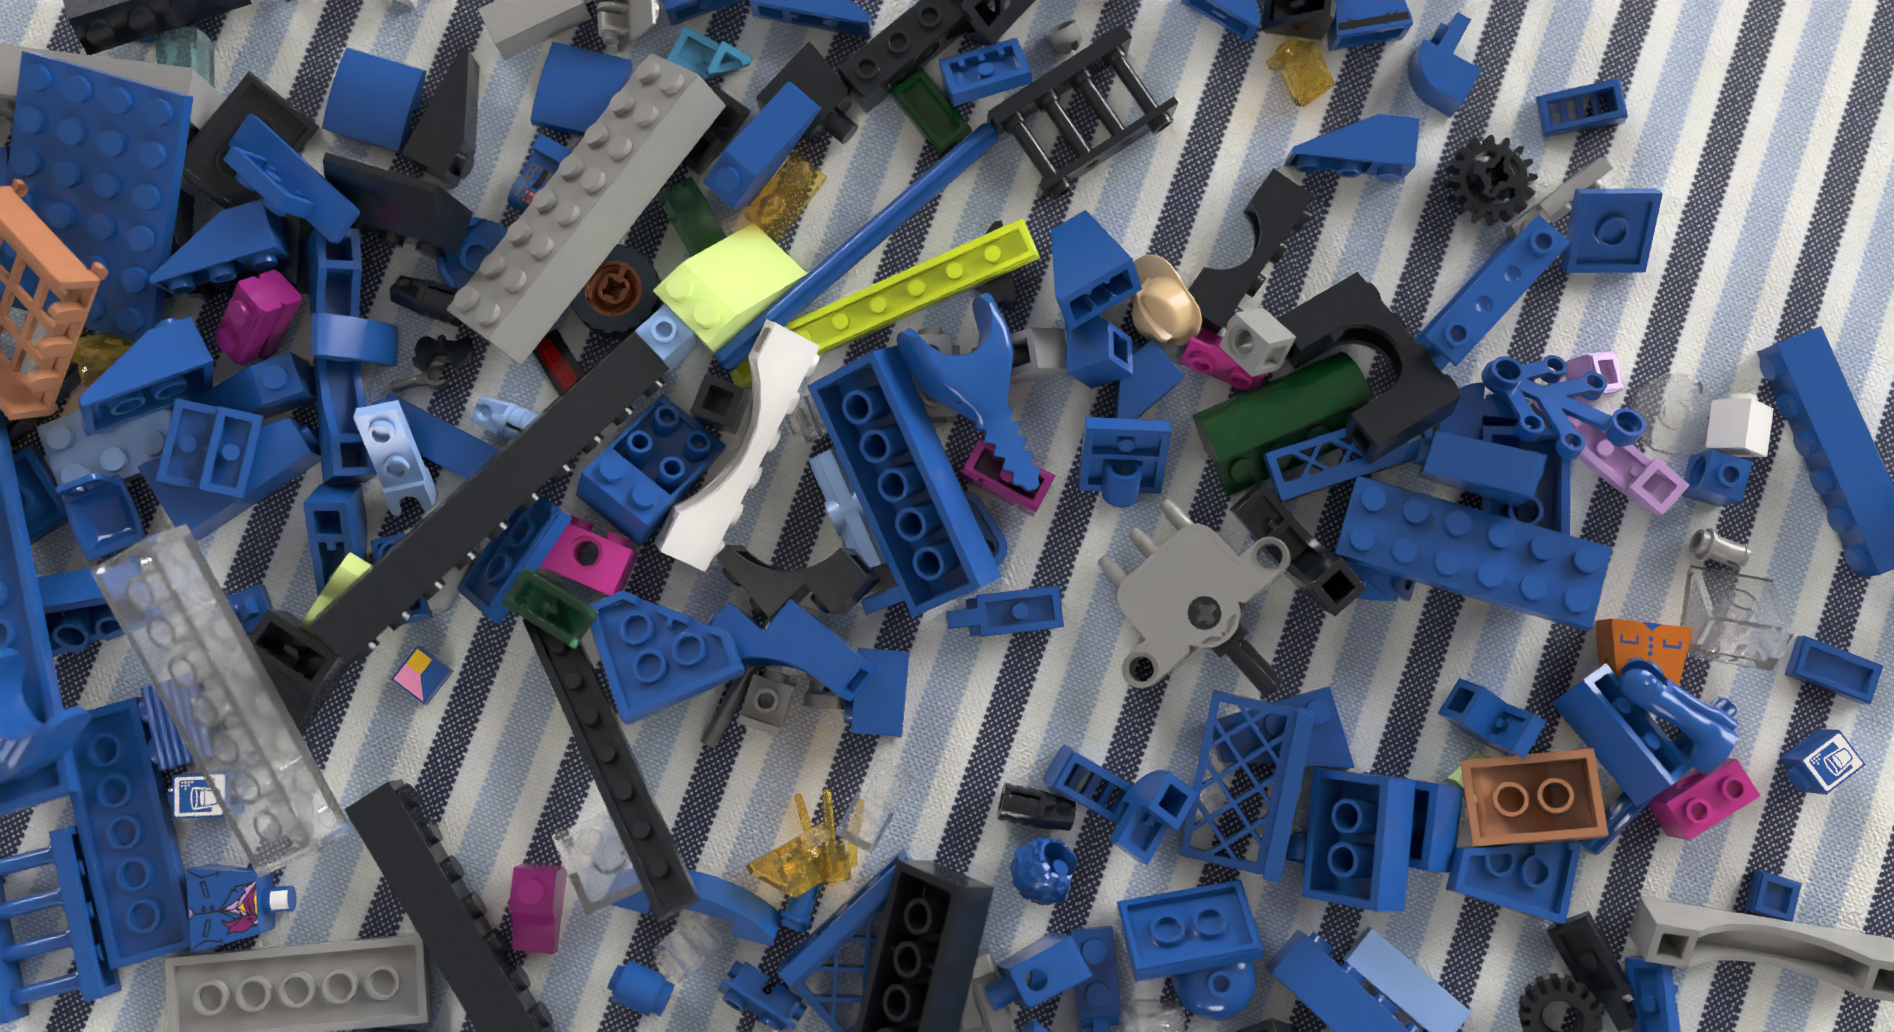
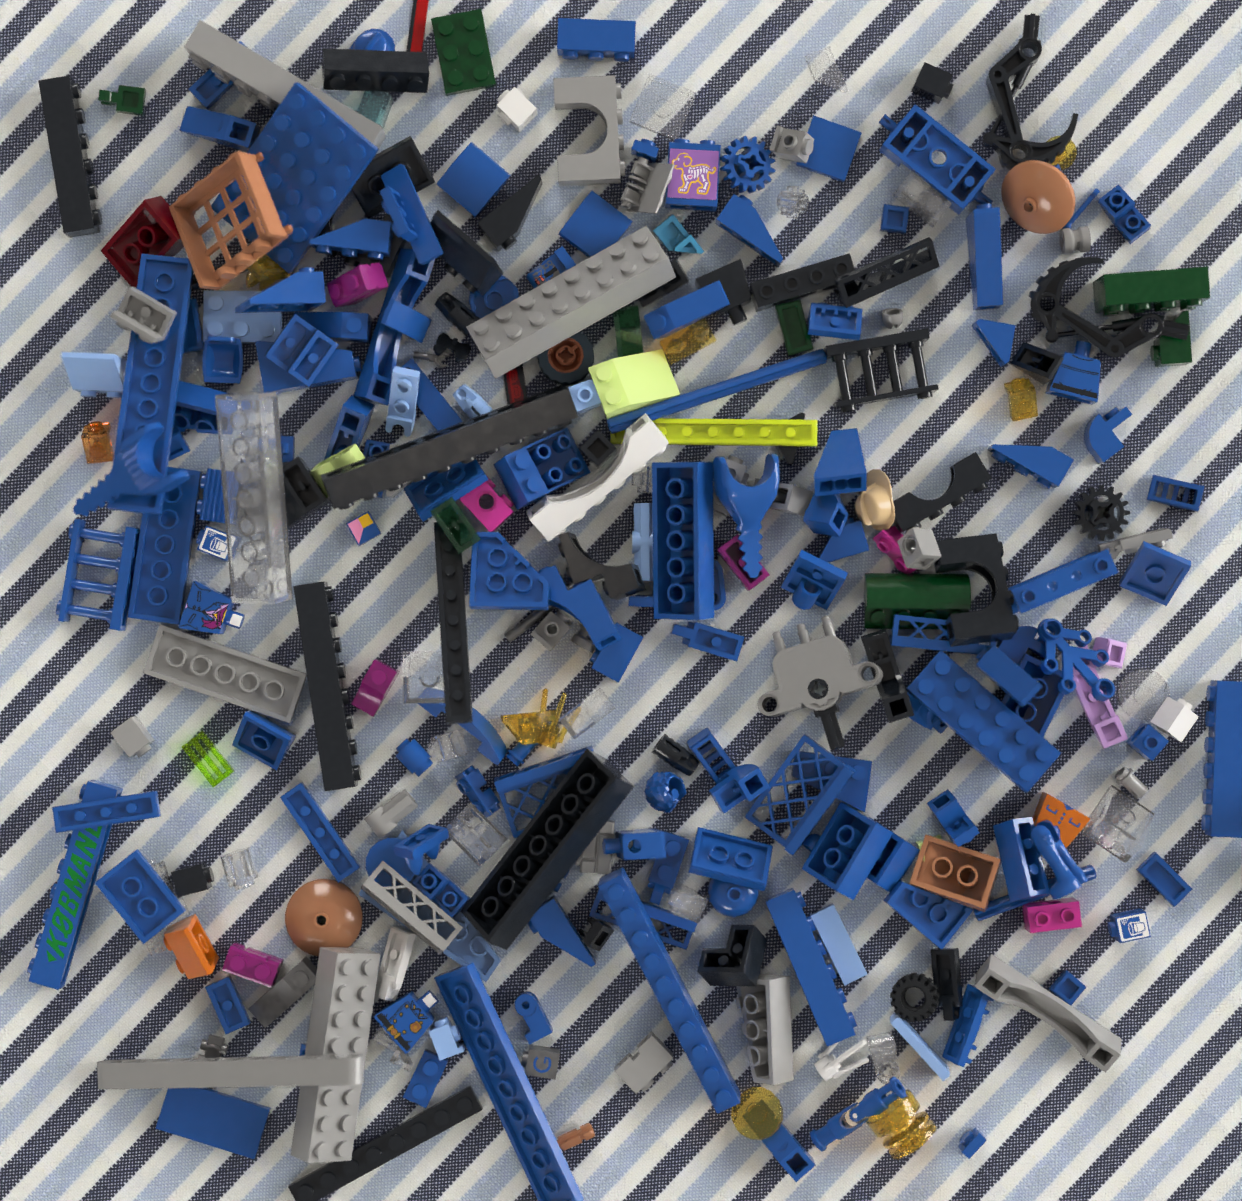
camera: 25 degrees right, 5 degrees up
(80, 675) = (178, 445): none -> blue tile

